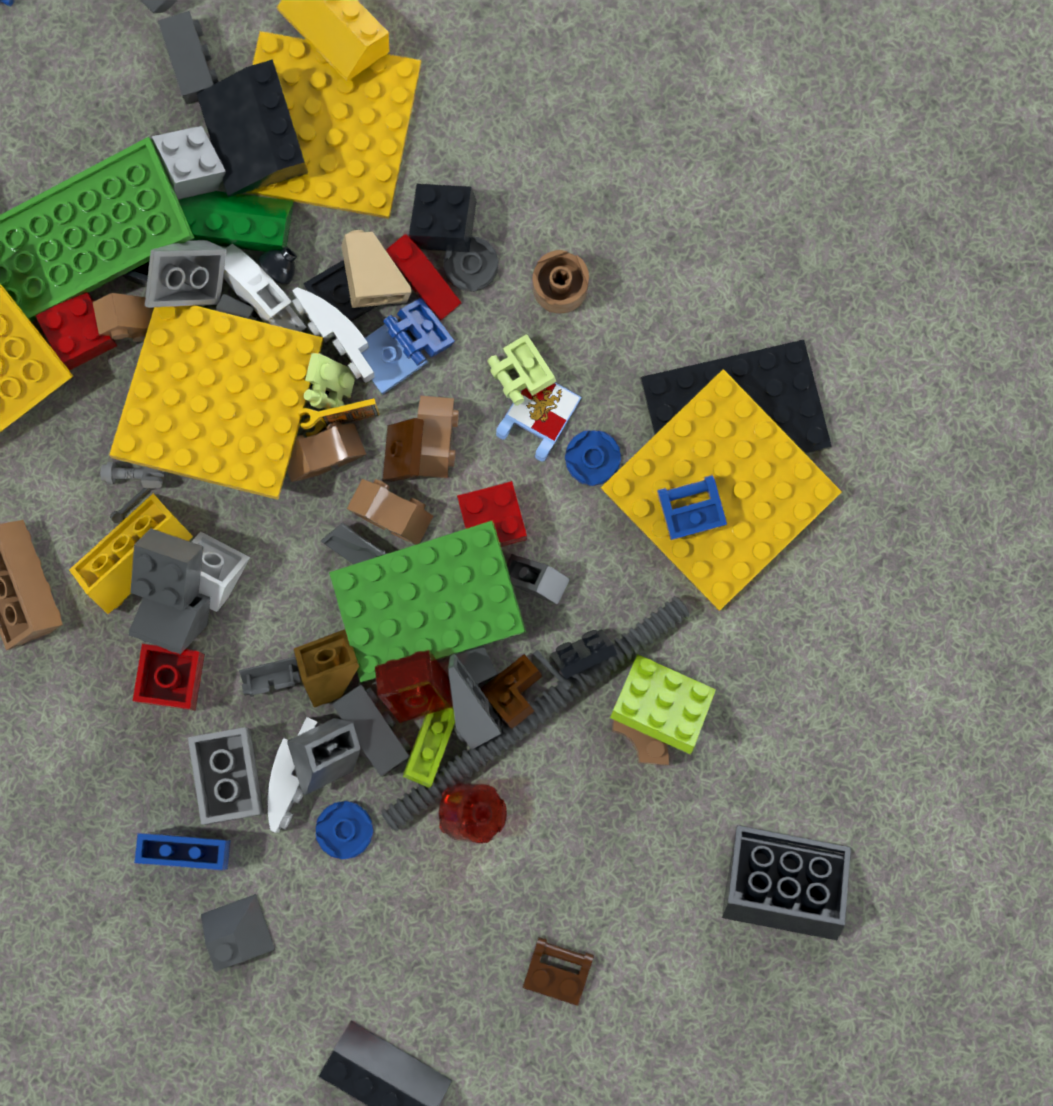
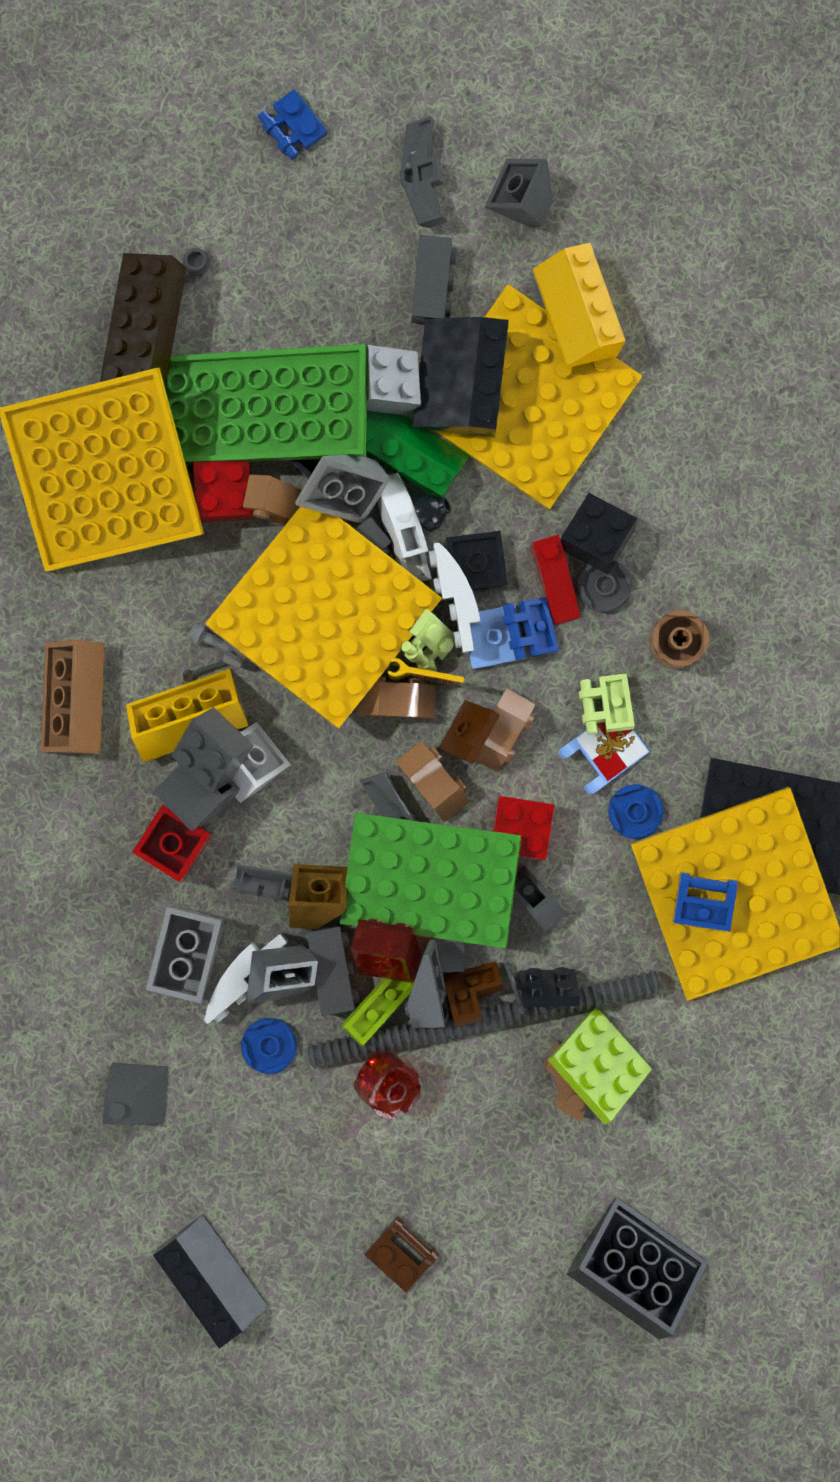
camera: 20 degrees right, 5 degrees up
(182, 851) = (119, 1003): blue brick -> none
(371, 272) = (512, 555): tan slope -> none

